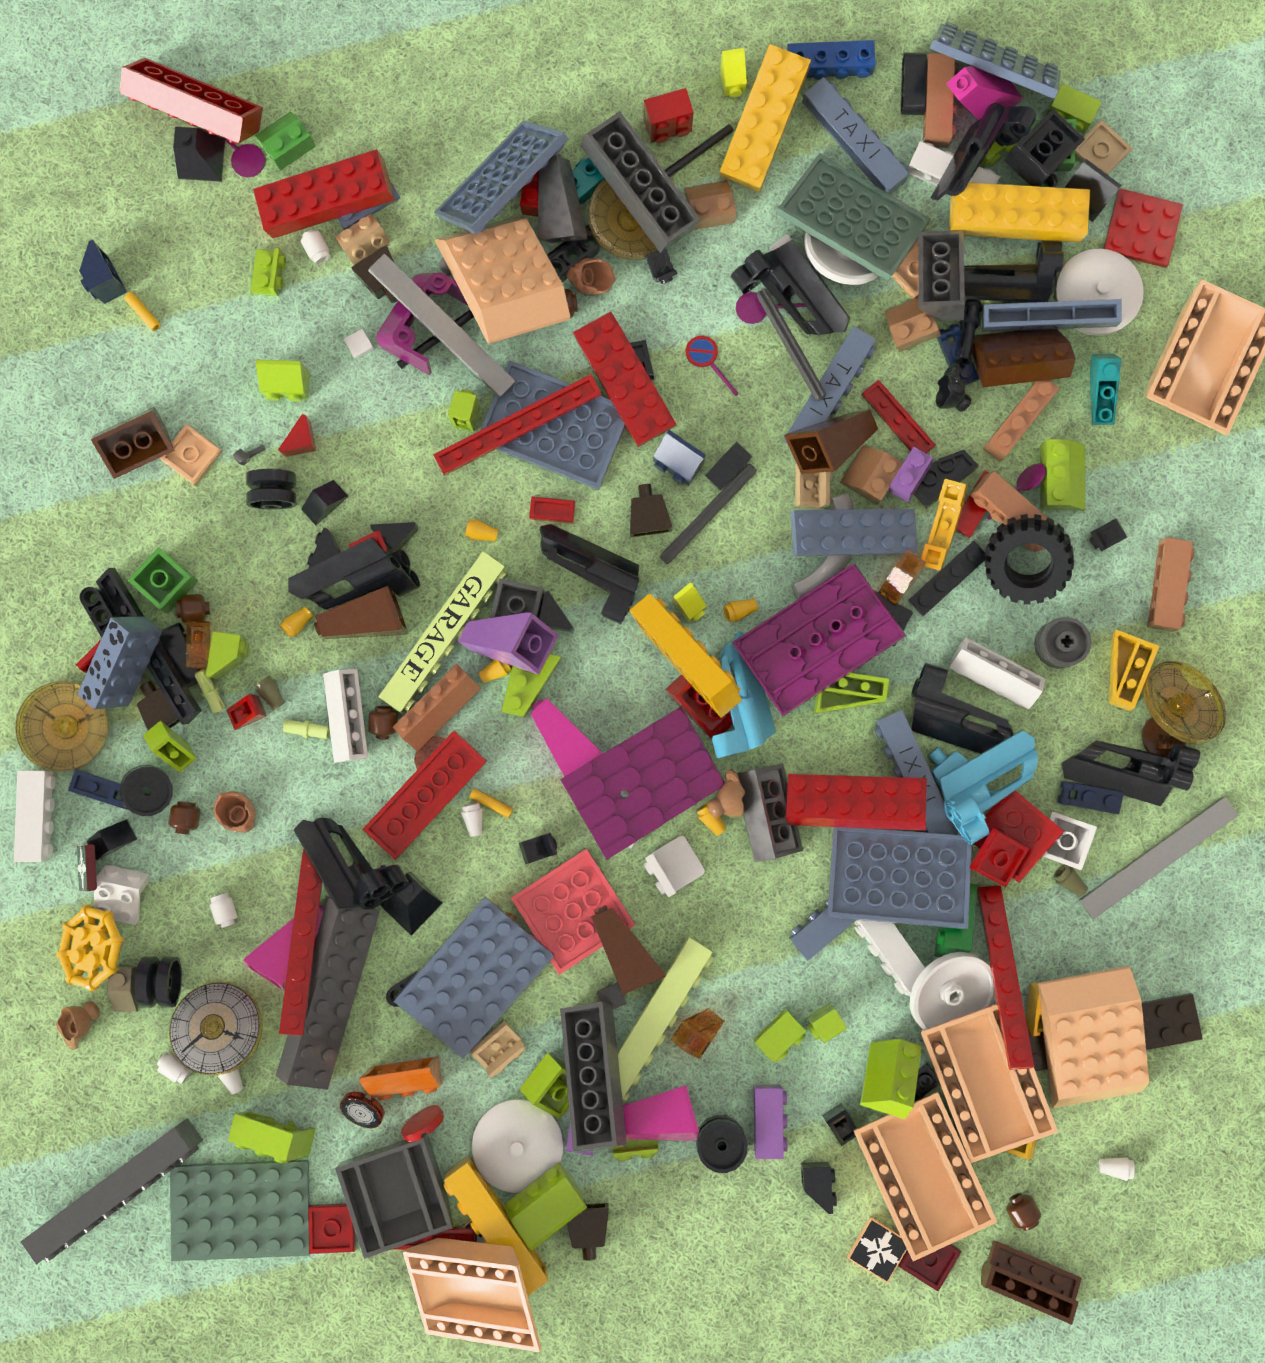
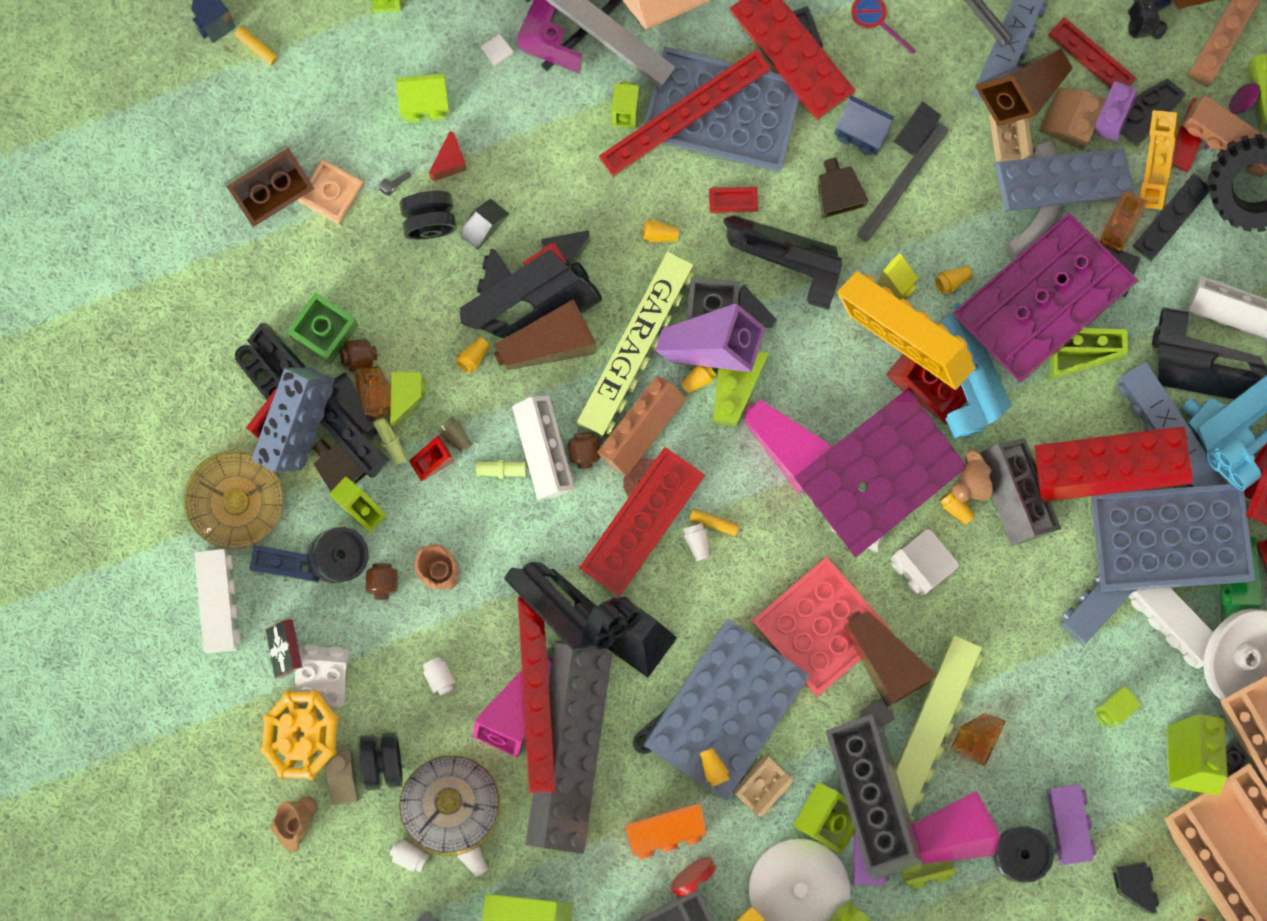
camera: 10 degrees left, 5 degrees down
(112, 839) = (305, 614): black slope -> none
(361, 1110) = (624, 872): tile -> none
(453, 1032) = (714, 768): none -> yellow cone
(538, 848) = (774, 563): black bracket -> none
(780, 1036) = (1068, 730): lime brick -> none
(840, 1124) = (1149, 817): black slope -> none

